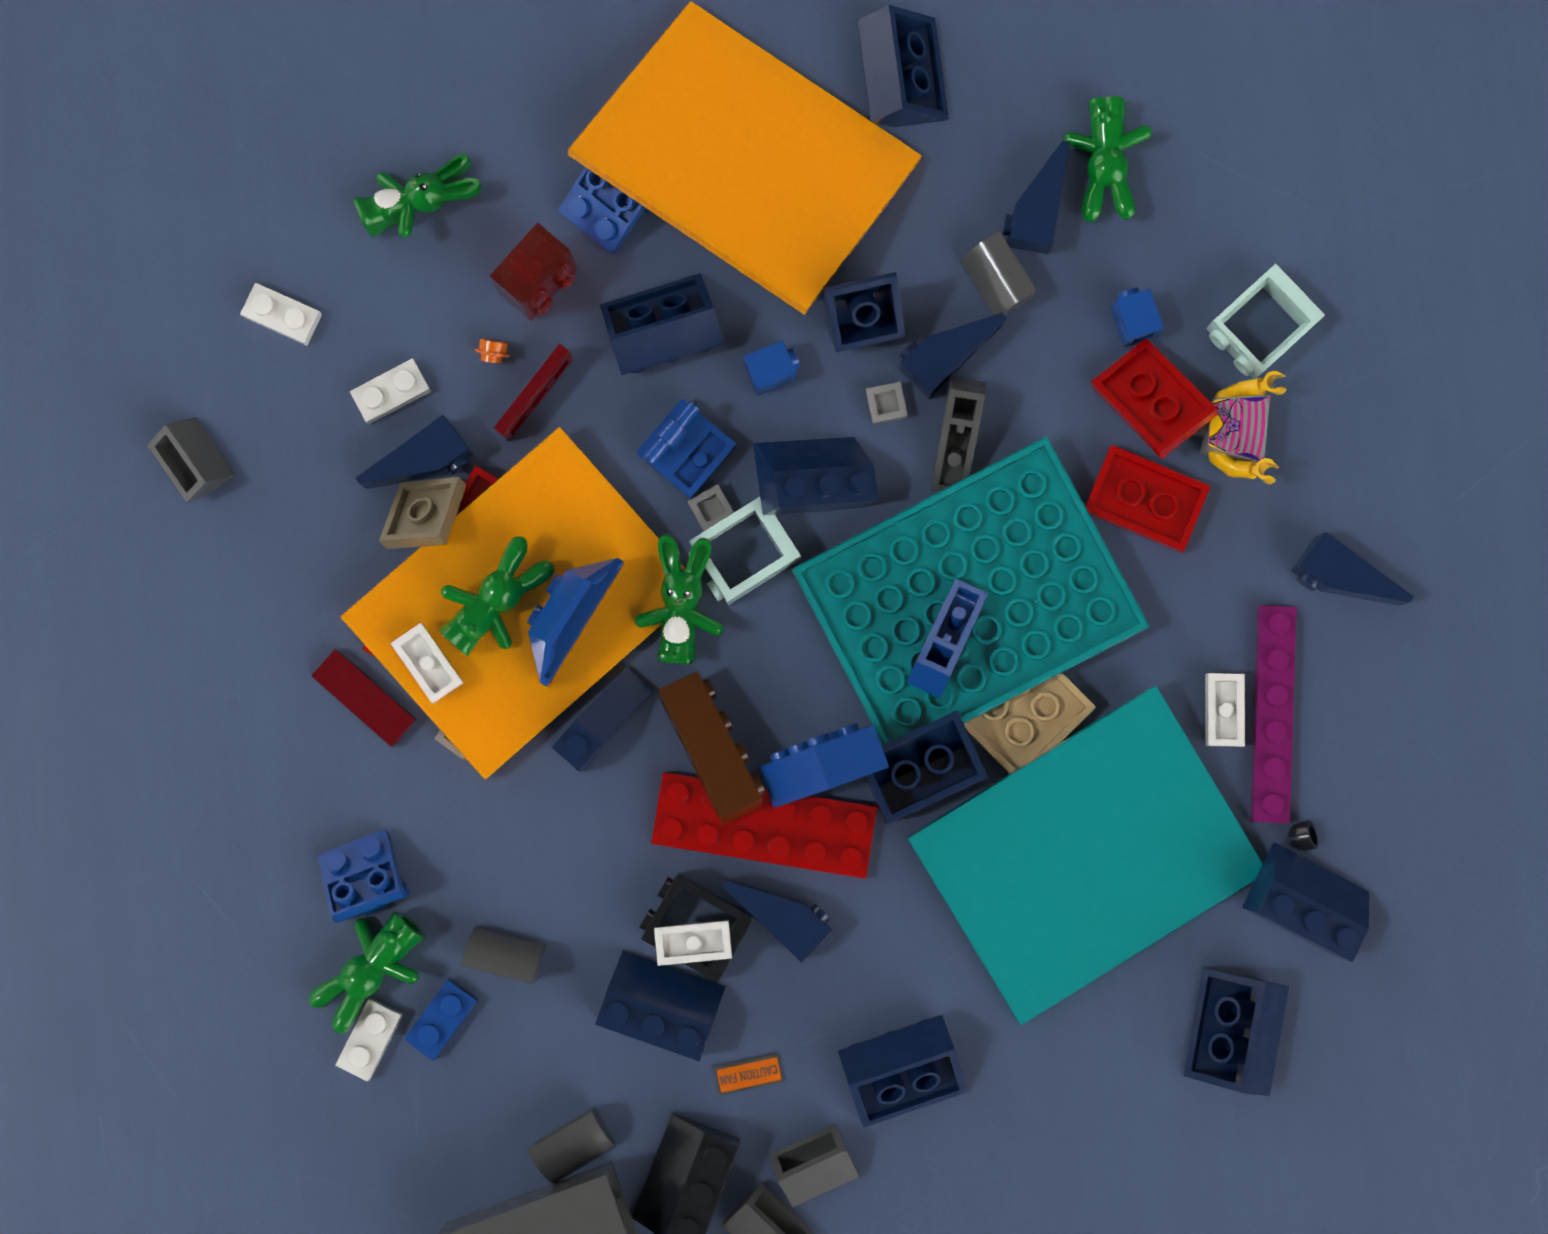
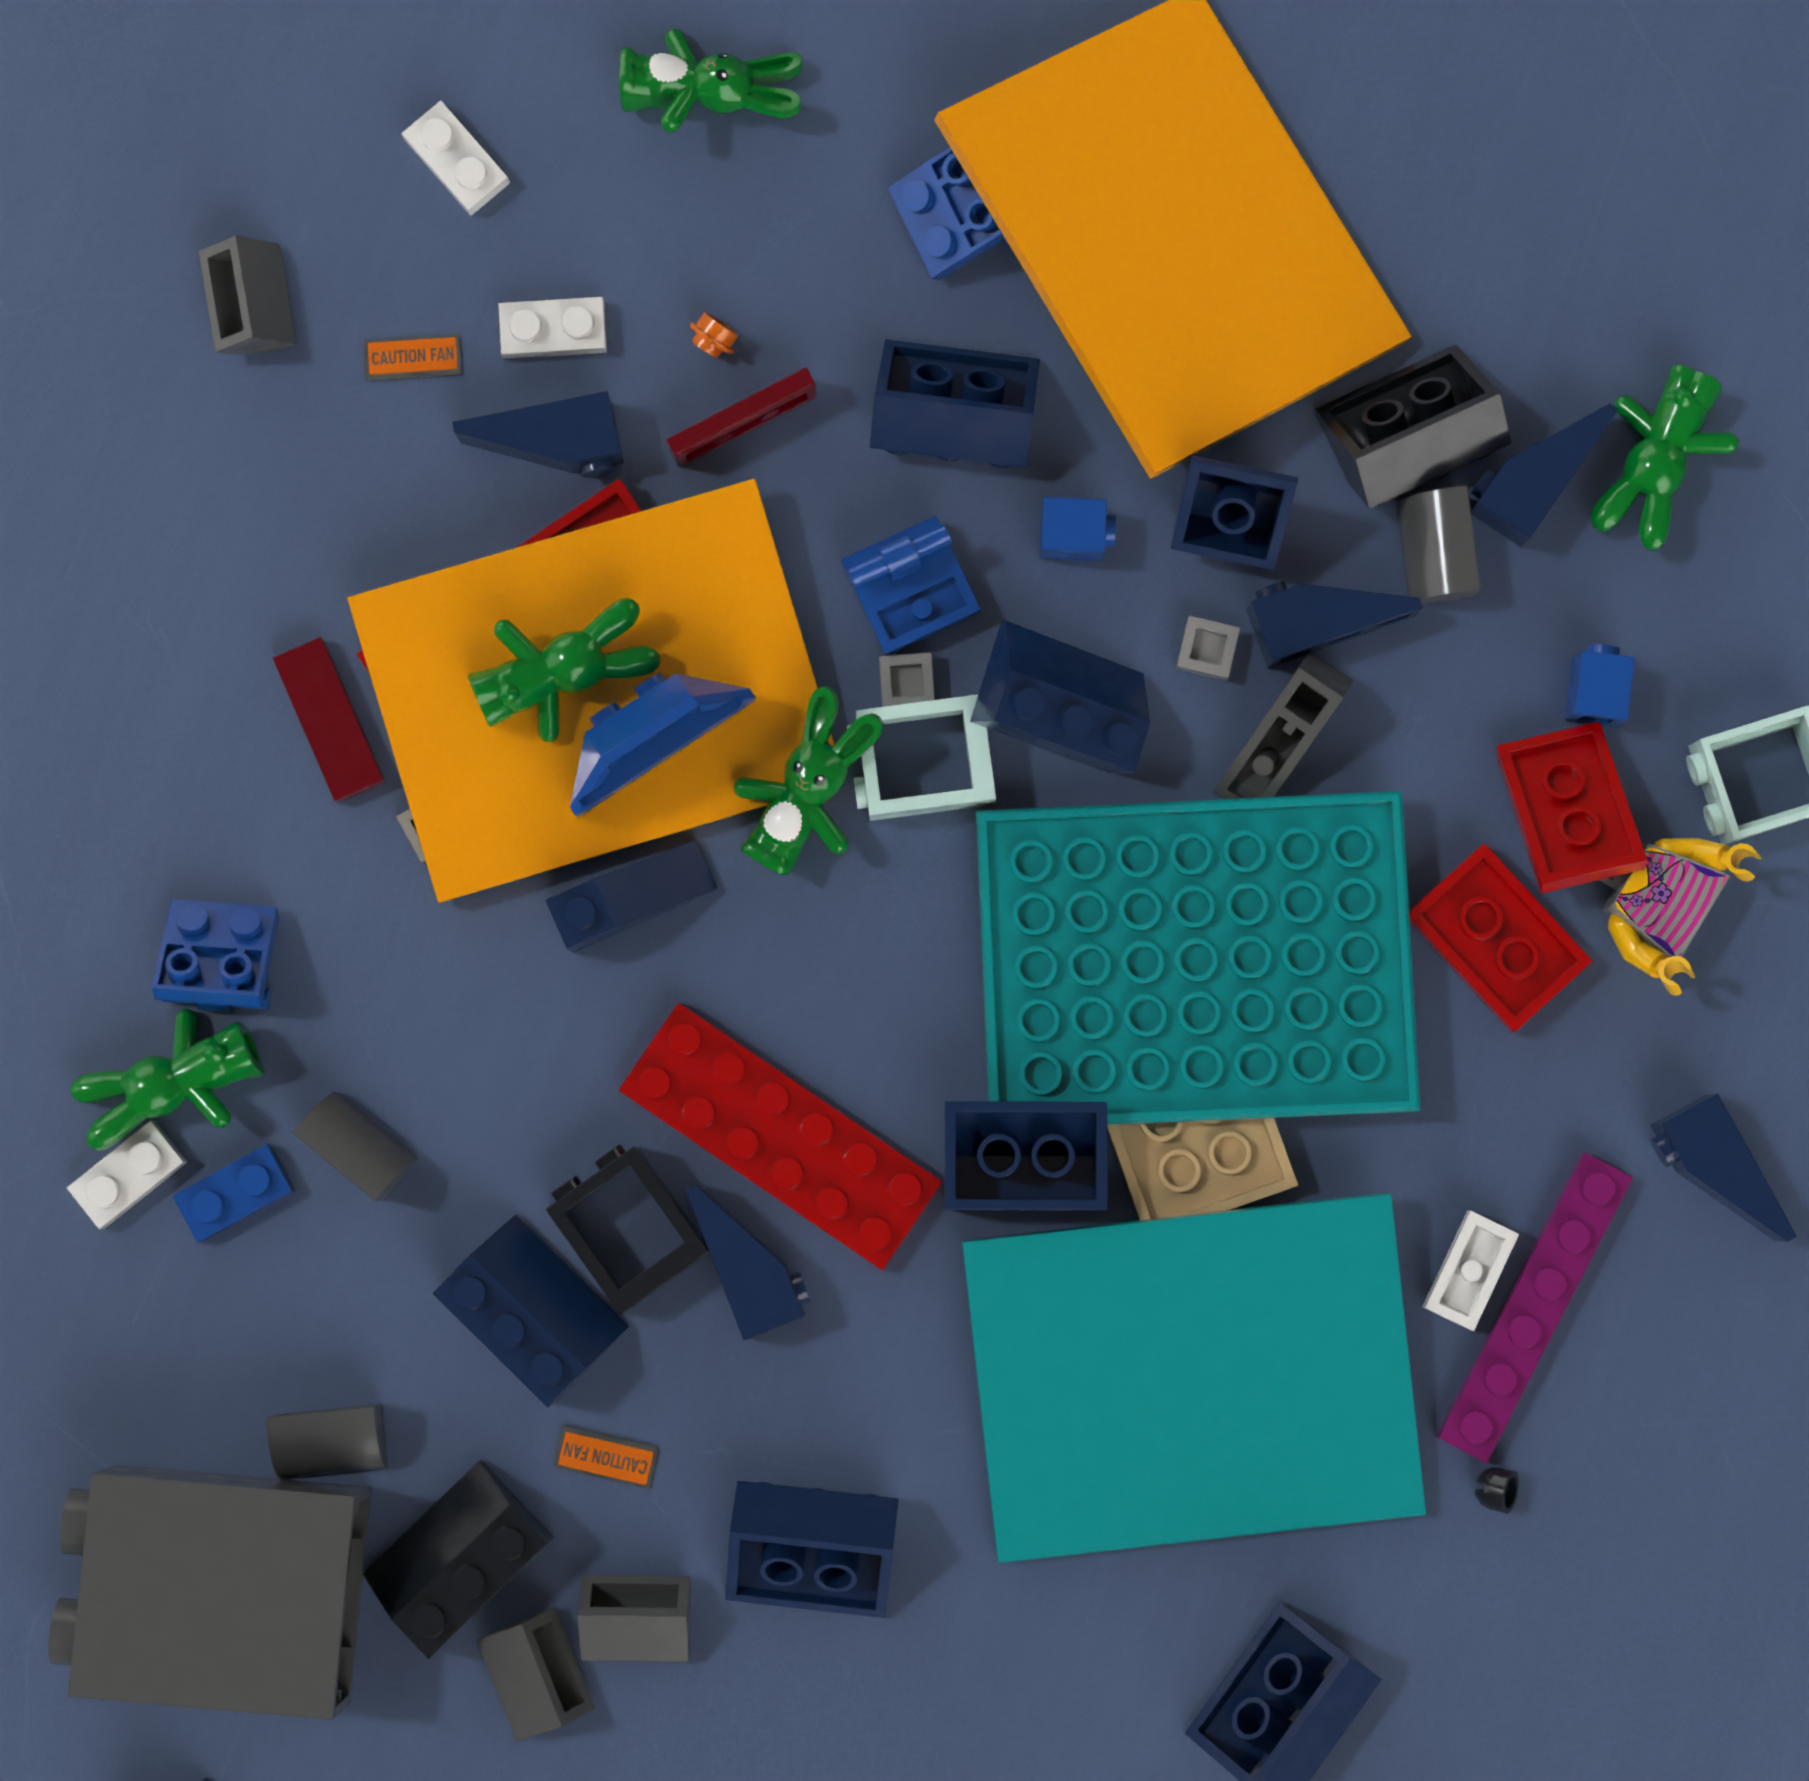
camera: 25 degrees right, 0 degrees up
(311, 449) = (412, 357): none -> sticker
(422, 513) = (519, 510): dark tan plate -> none
(427, 663) = (433, 712): white plate -> none
(535, 272) = (817, 257): clear red brick -> none
(693, 942) = (612, 1246): white plate -> none
(711, 748) = (756, 999): reddish brown brick -> none
(823, 763) = (894, 1089): blue brick -> none
(902, 67) = (1441, 206): dark blue slope -> none
(947, 638) = (1139, 999): blue slope -> none
(949, 209) = (1414, 426): none -> black slope
(1310, 903) = (1463, 1581): dark blue slope -> none

